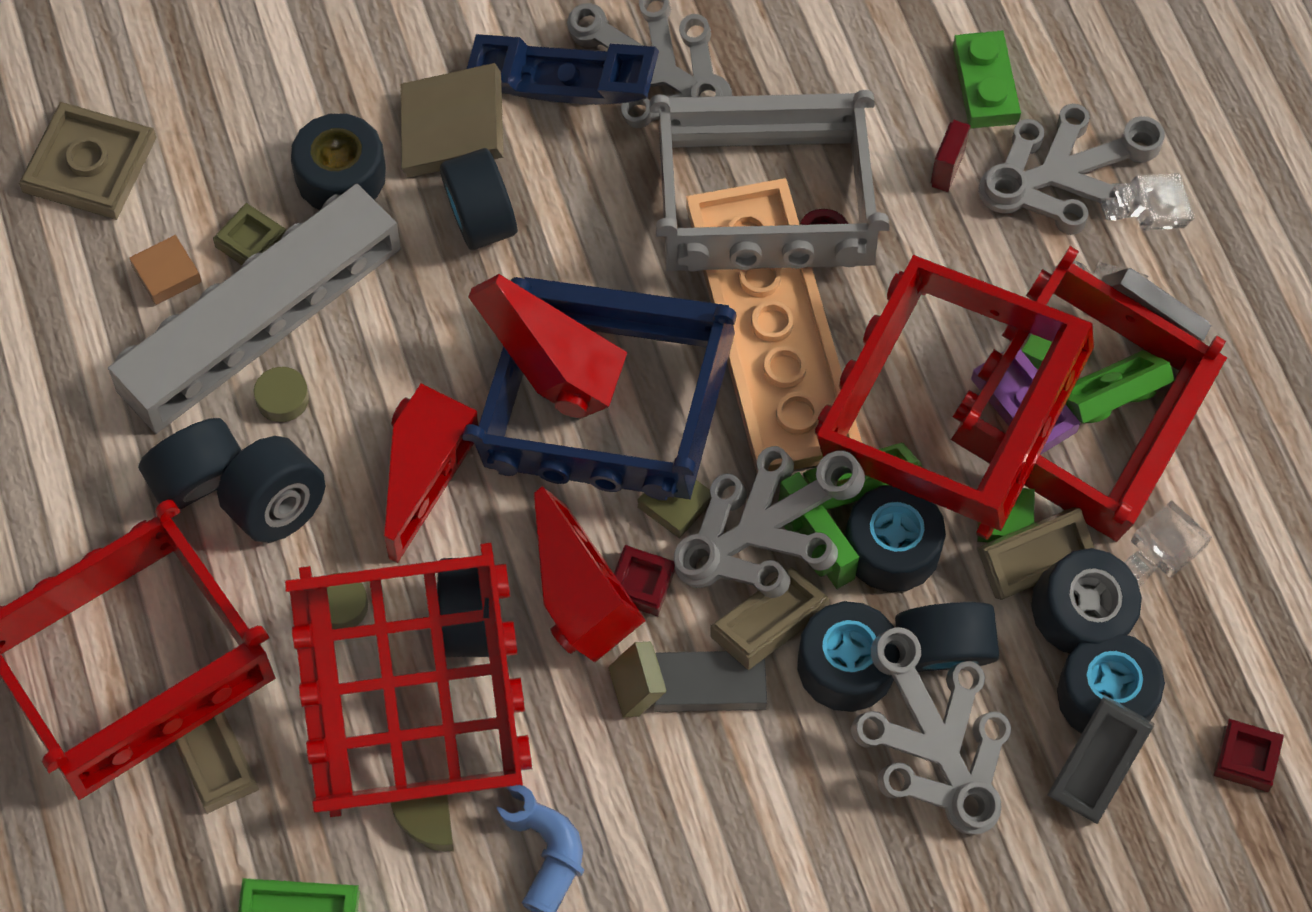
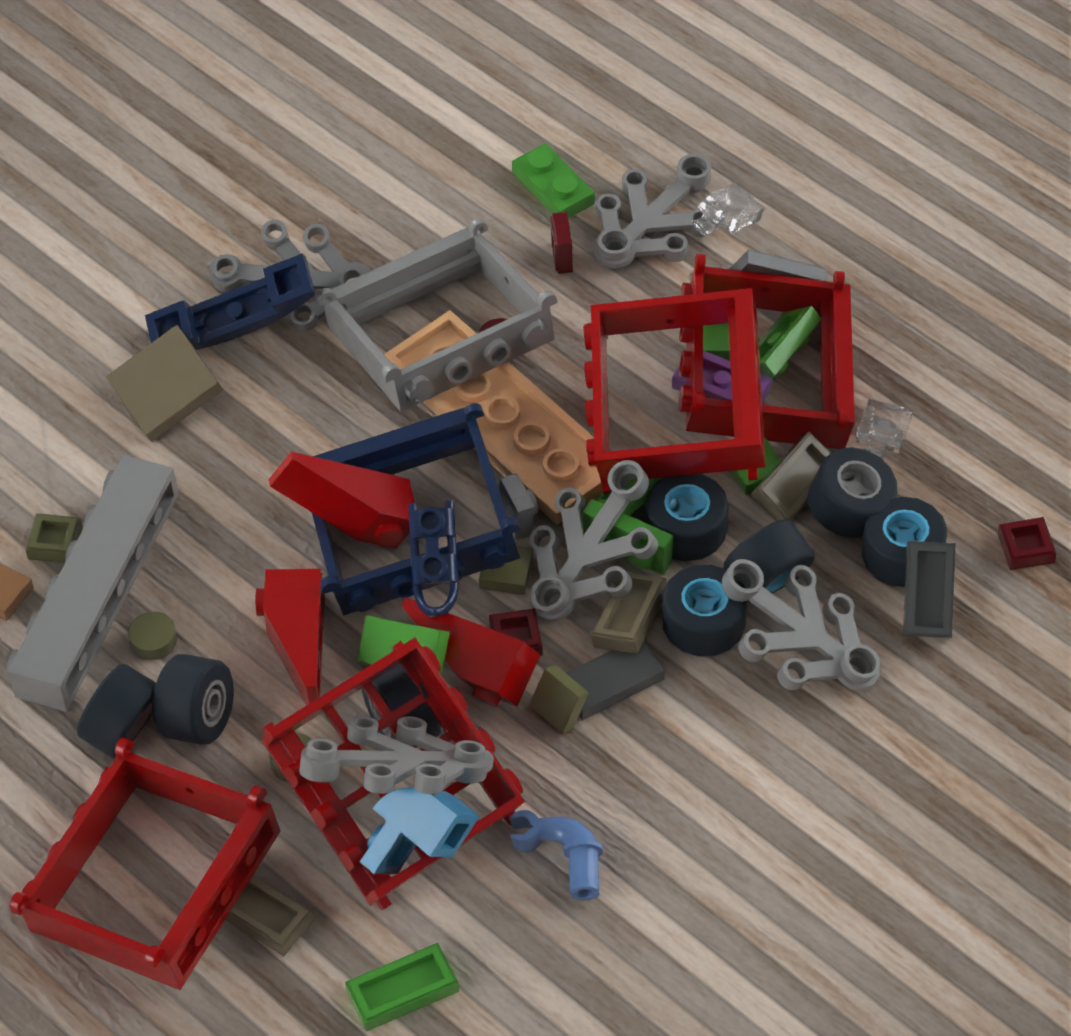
camera: 25 degrees left, 10 degrees down
(334, 156) = (90, 447): black wheel -> none
(391, 754) = (413, 818): none -> dark azure brick
(426, 821) = (458, 874): olive tile -> none
(466, 707) = (396, 759): none -> light grey plant
(478, 198) = (225, 424): black wheel -> none
(513, 538) = (382, 634): none -> bright green tile
(582, 470) = (433, 567): none -> dark blue piece
(725, 437) = (518, 504): none -> light grey plate

